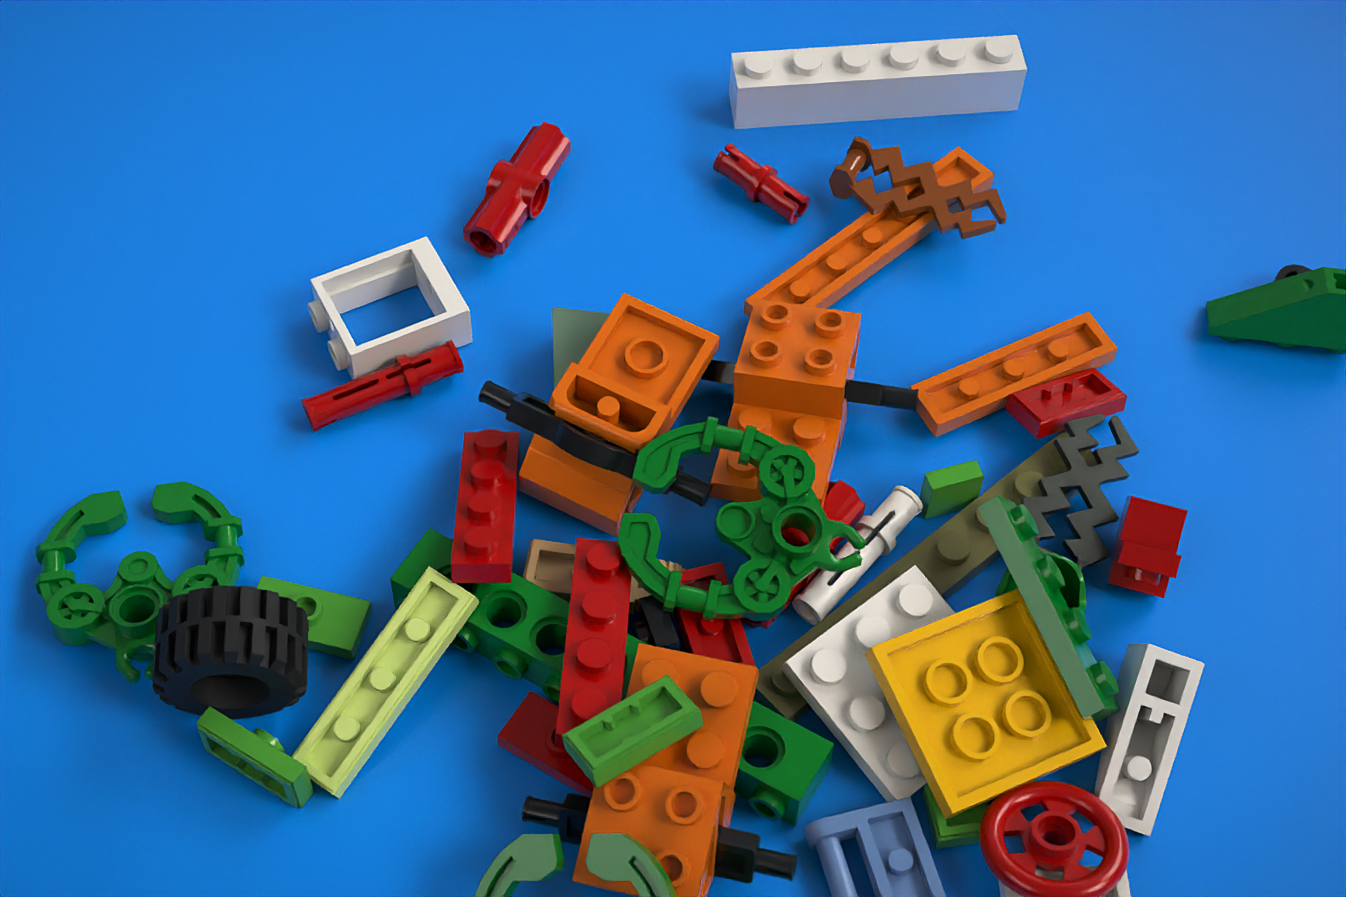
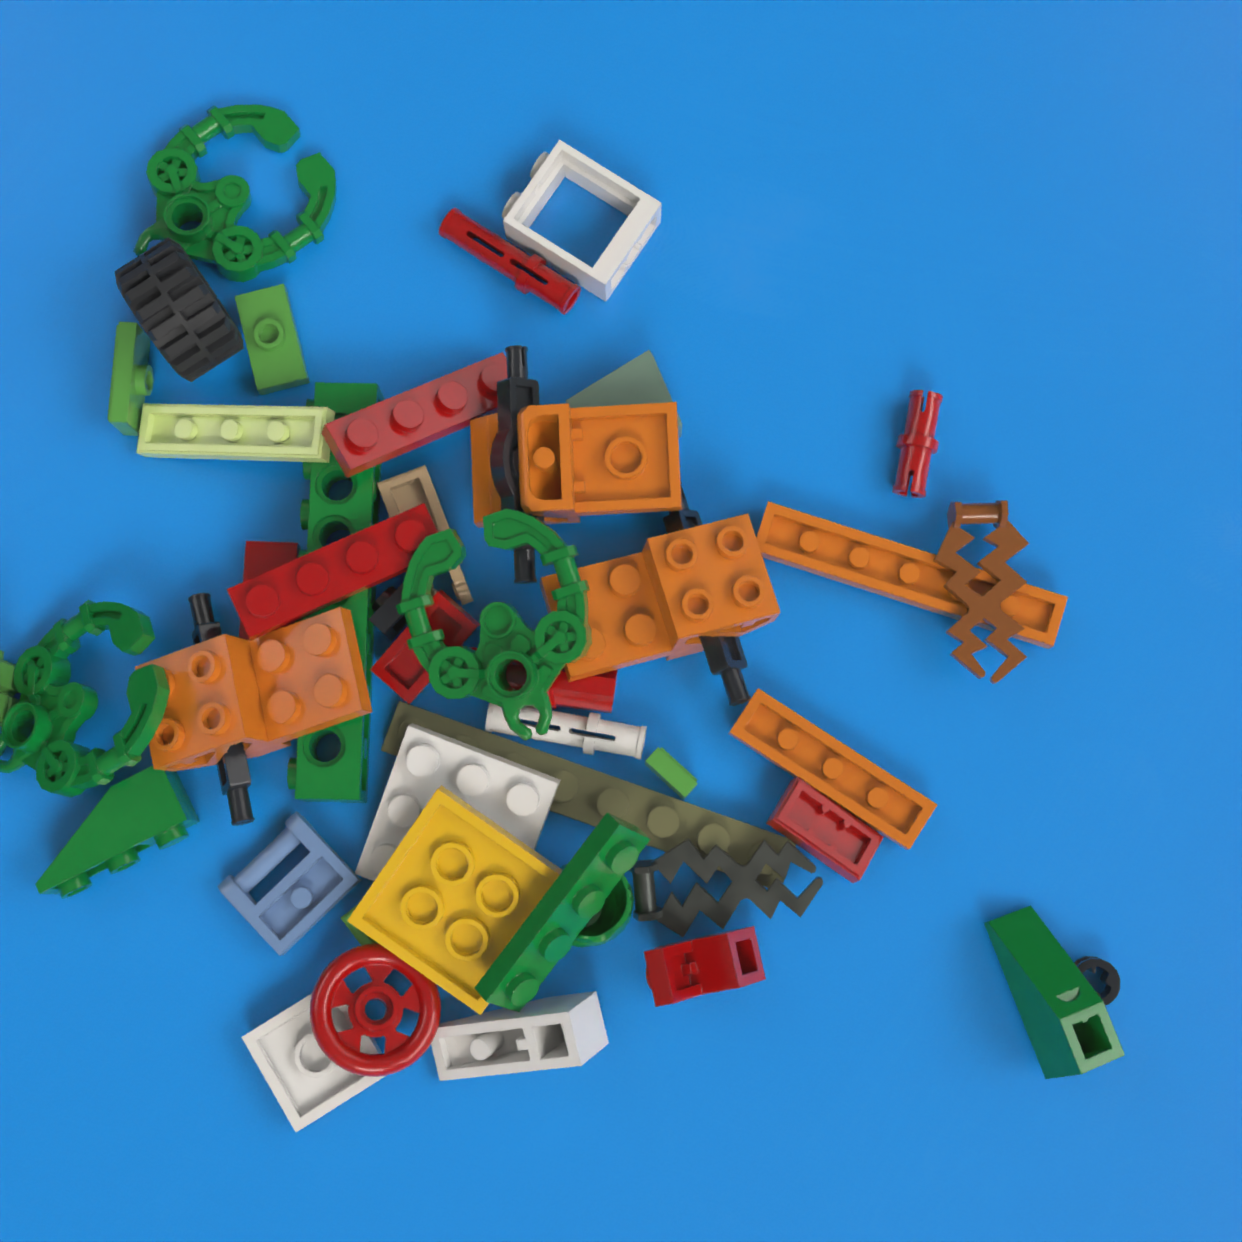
camera: 65 degrees right, 25 degrees up
(517, 190) = (779, 242): red piece -> none
(632, 730) = (248, 646): bright green plate -> none
(876, 81) = (1104, 483): white brick -> none

